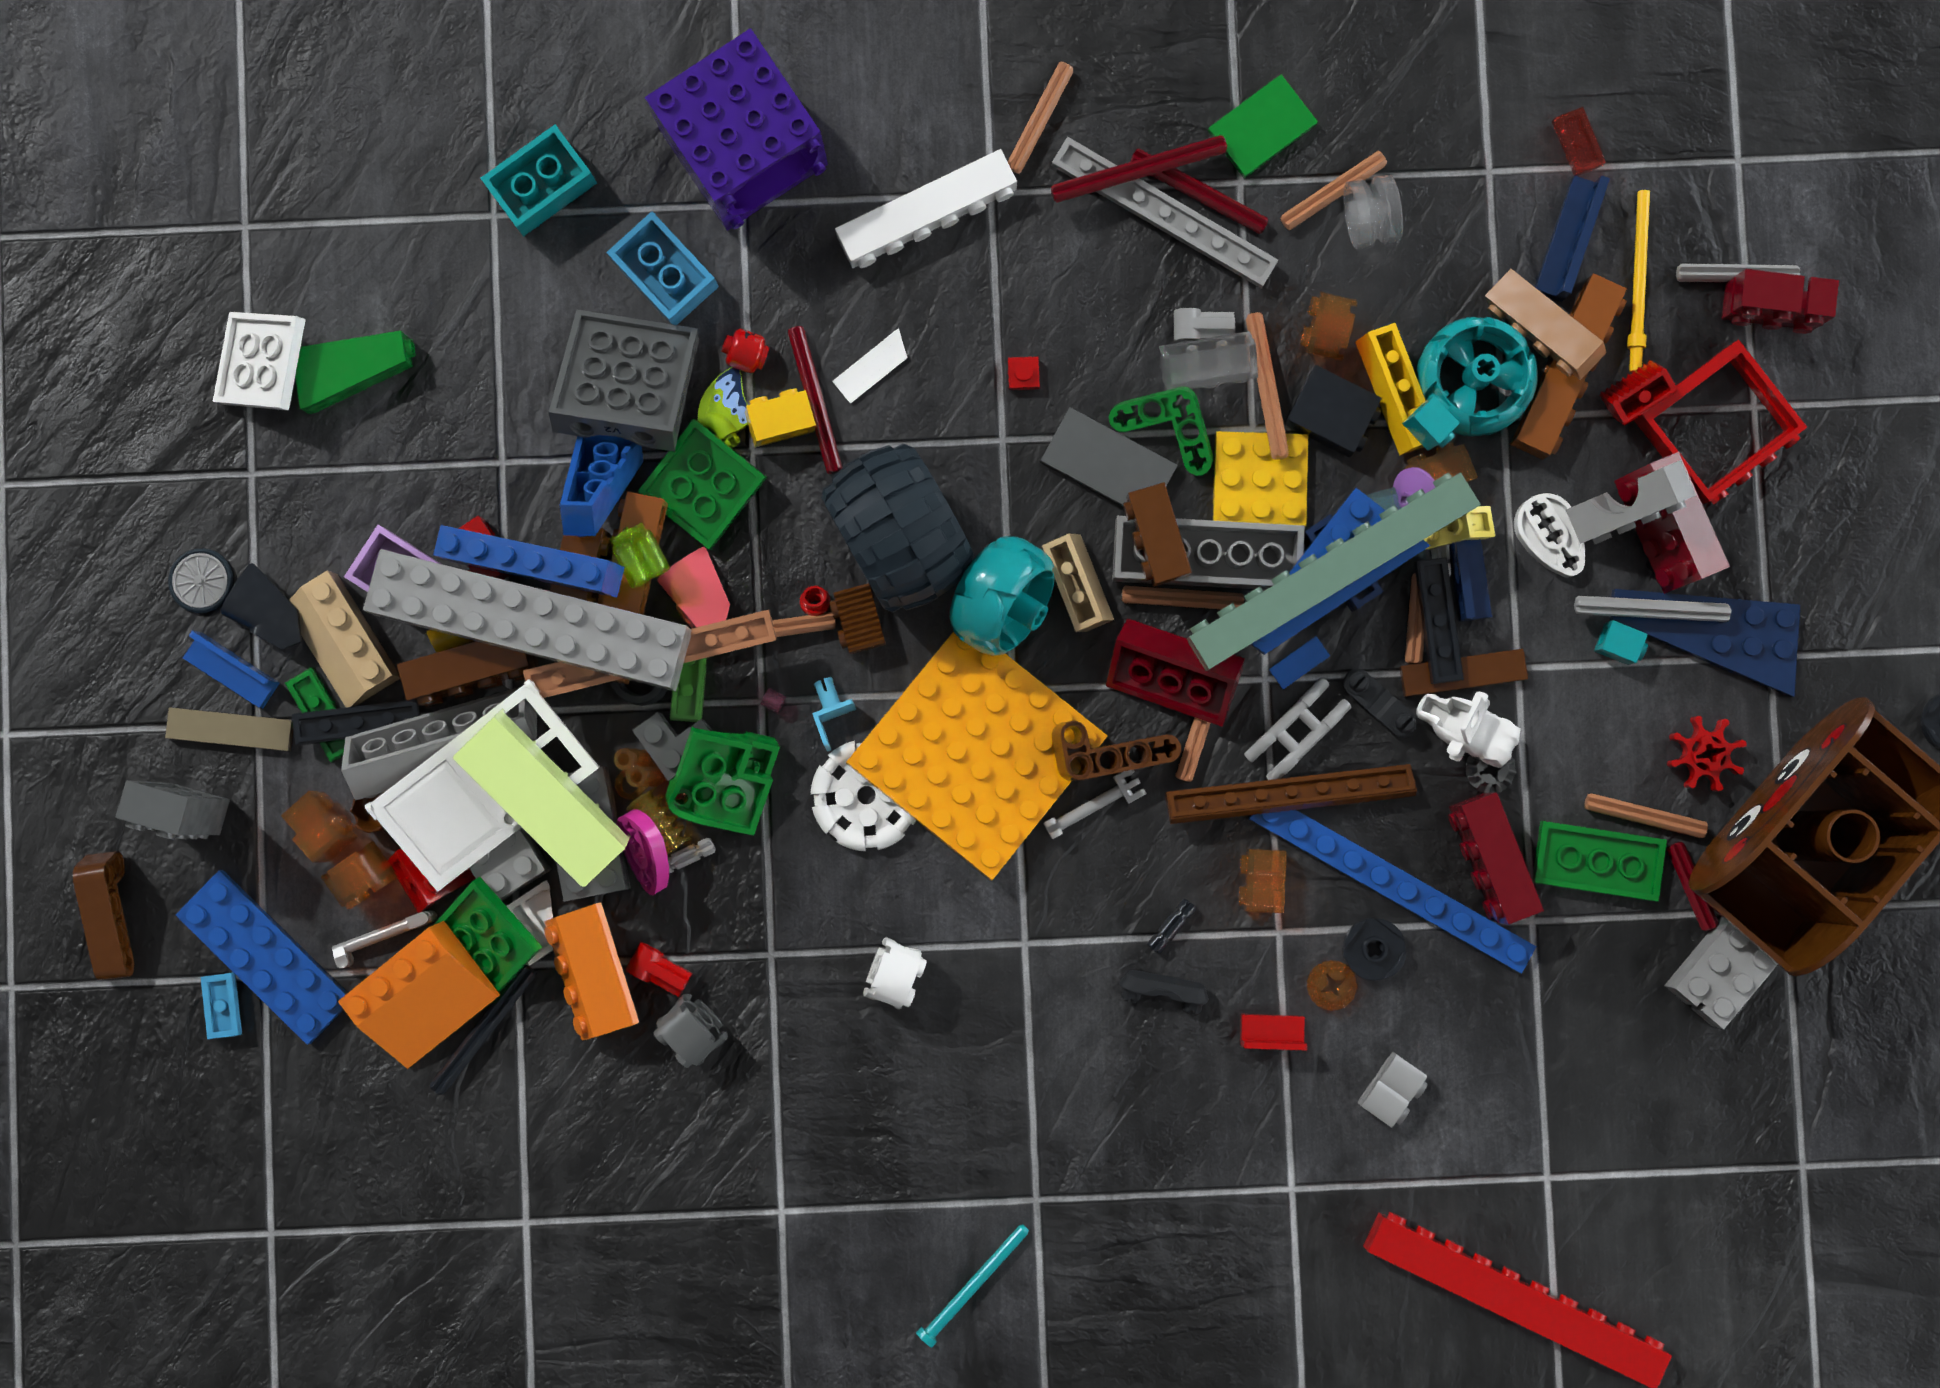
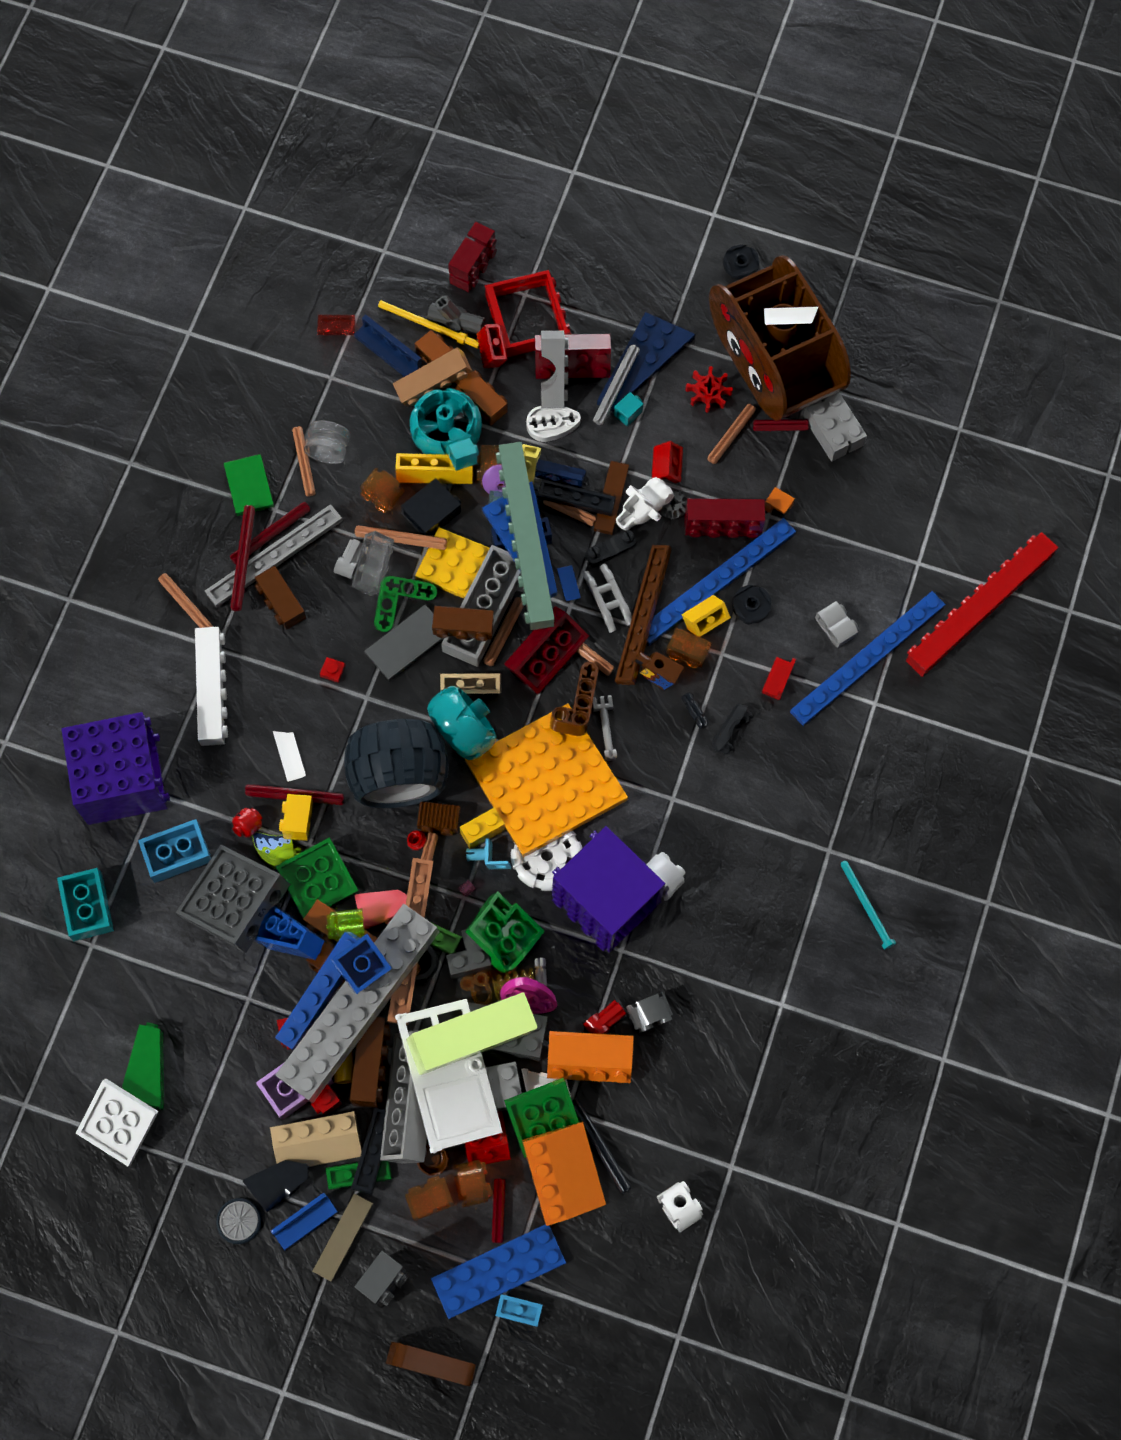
camera: 75 degrees left, 15 degrees down
(343, 925) = (498, 1211): none -> dark red axle
(343, 951) = (514, 1217): light grey hinge -> none
(397, 633) = (326, 1101): none -> red brick
(418, 1176) = (680, 1216): none -> white brick
(564, 604) = (361, 964): none -> blue brick
(829, 906) = (606, 889): none -> dark purple piece
(866, 687) = (482, 827): none -> yellow brick
(1100, 249) = (279, 598): none -> reddish brown brick
(1207, 851) = (659, 669): none -> reddish brown torso
(1318, 980) = (758, 641): clear orange gear -> none
(1324, 888) = (706, 616): none -> yellow brick
(1360, 1155) = (867, 658): none -> blue plate
(1556, 735) = (667, 461): none -> red panel
(1558, 931) = (779, 500): none -> orange panel
(1599, 861) = (747, 466): green plate -> none
(1667, 316) = (454, 316): none -> dark grey piece
(1725, 272) = (443, 280): light grey axle -> none
(1859, 845) = (794, 315): none -> white sticker

